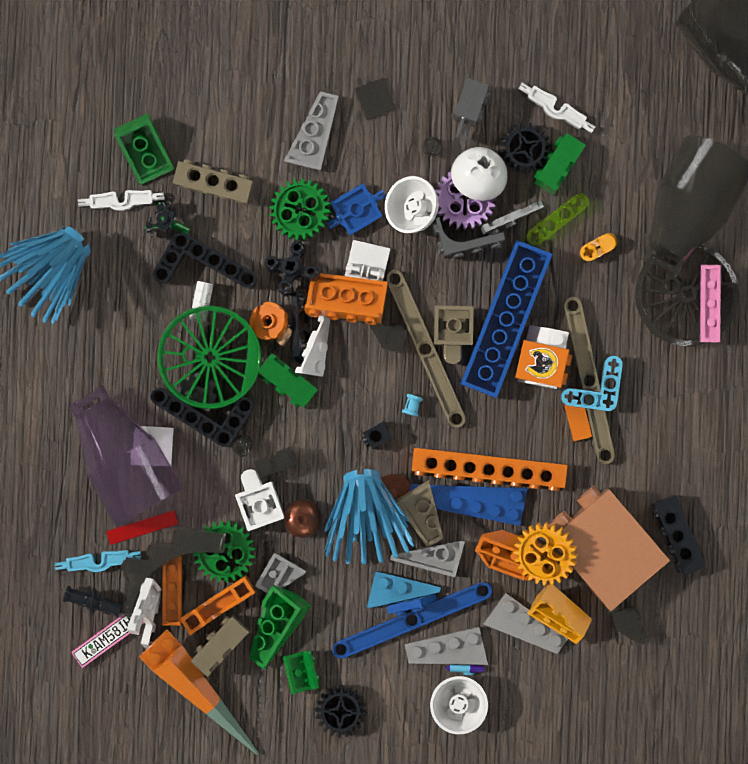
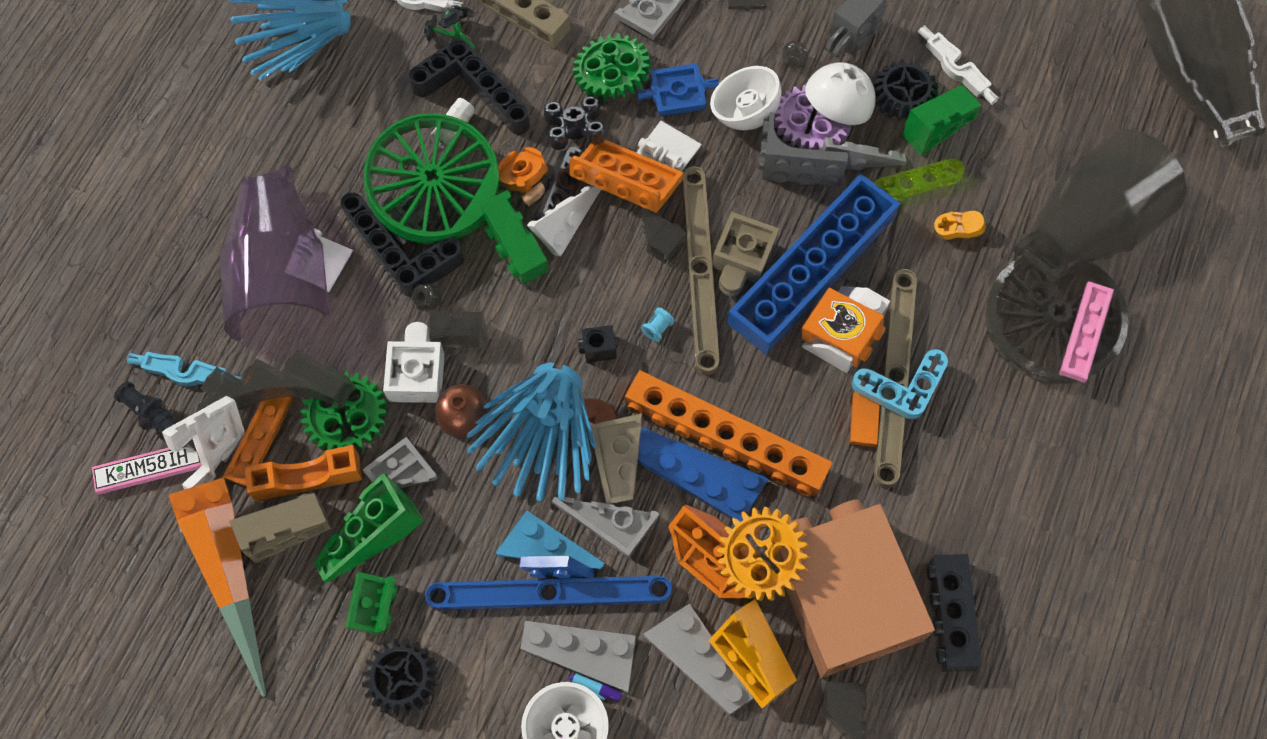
camera: 20 degrees right, 20 degrees down
(142, 527) = (251, 351): red sticker -> none

